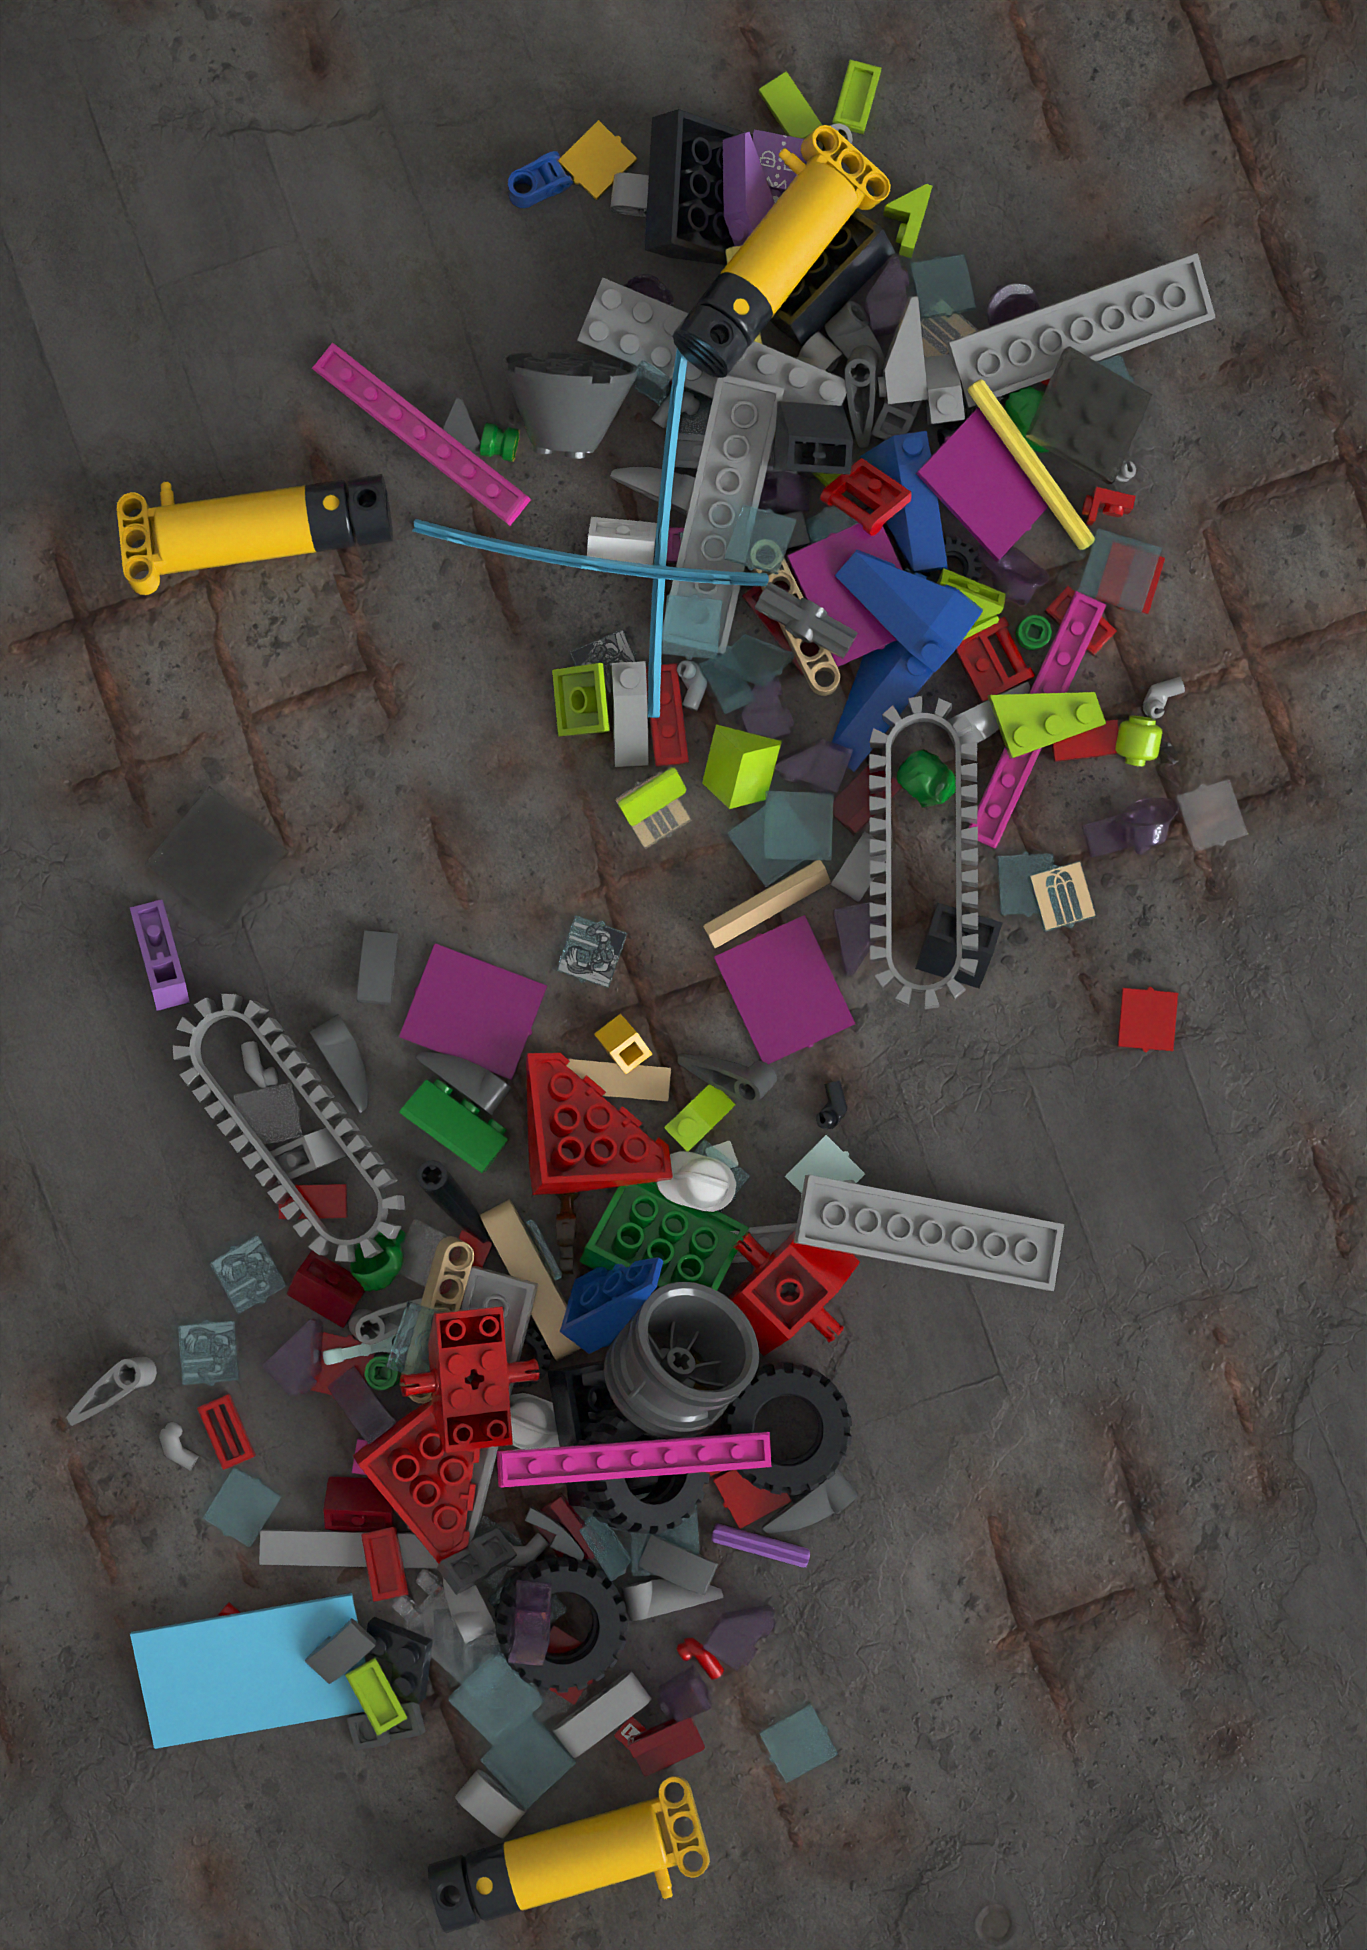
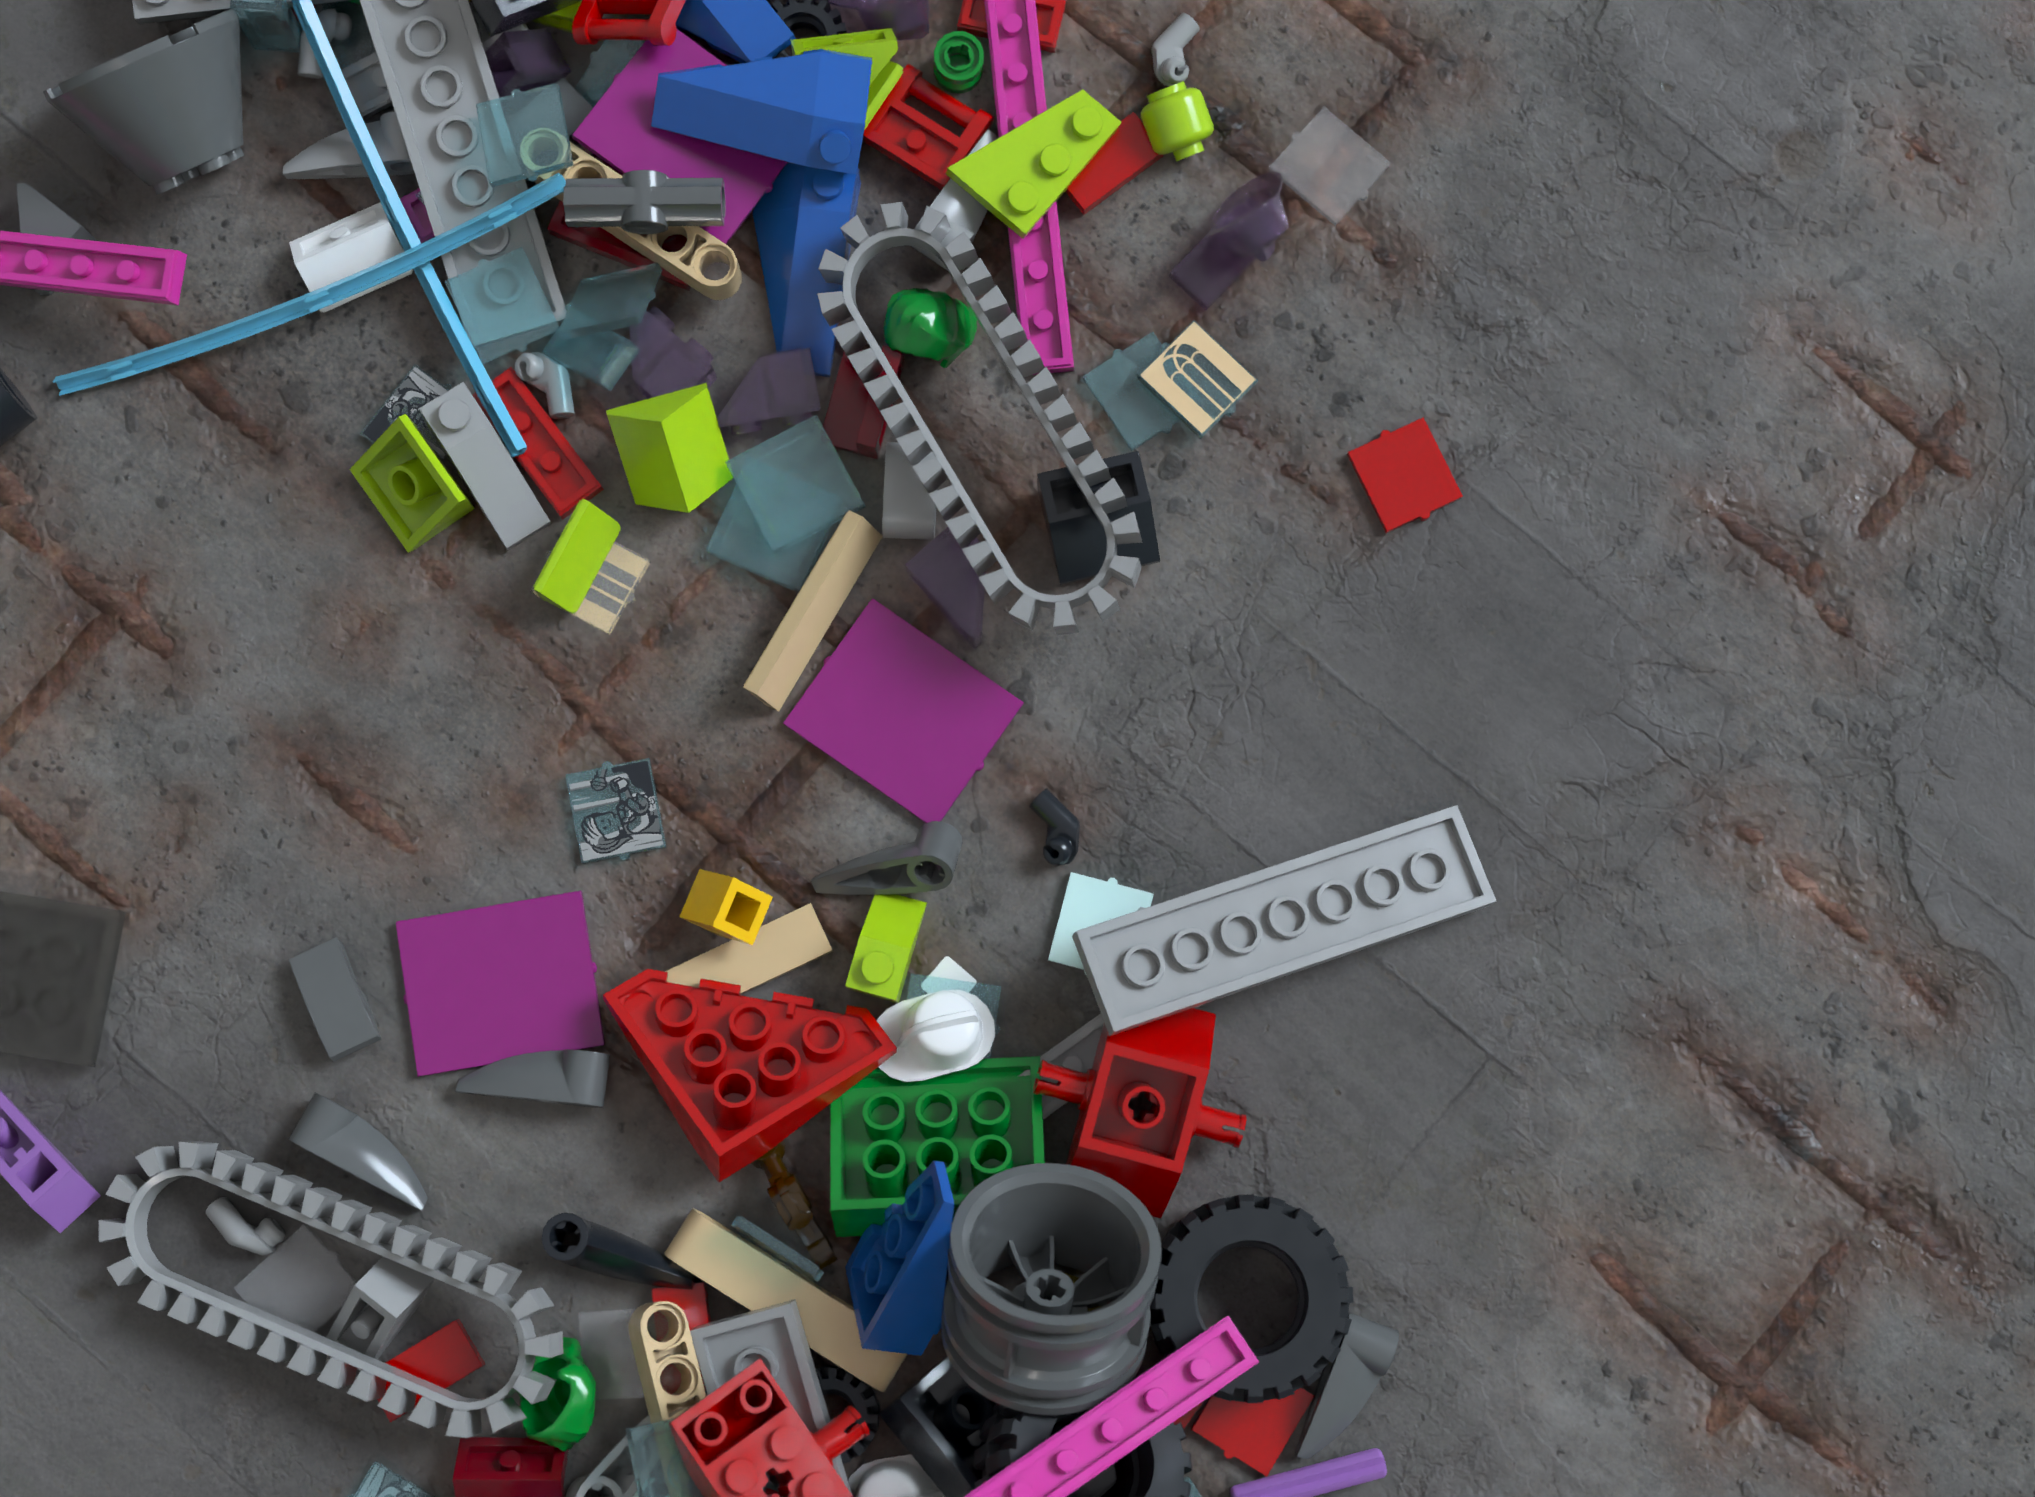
camera: 35 degrees left, 5 degrees down
(455, 1124) = (559, 1148): green slope -> none
(499, 443) = (110, 214): green wheel -> none

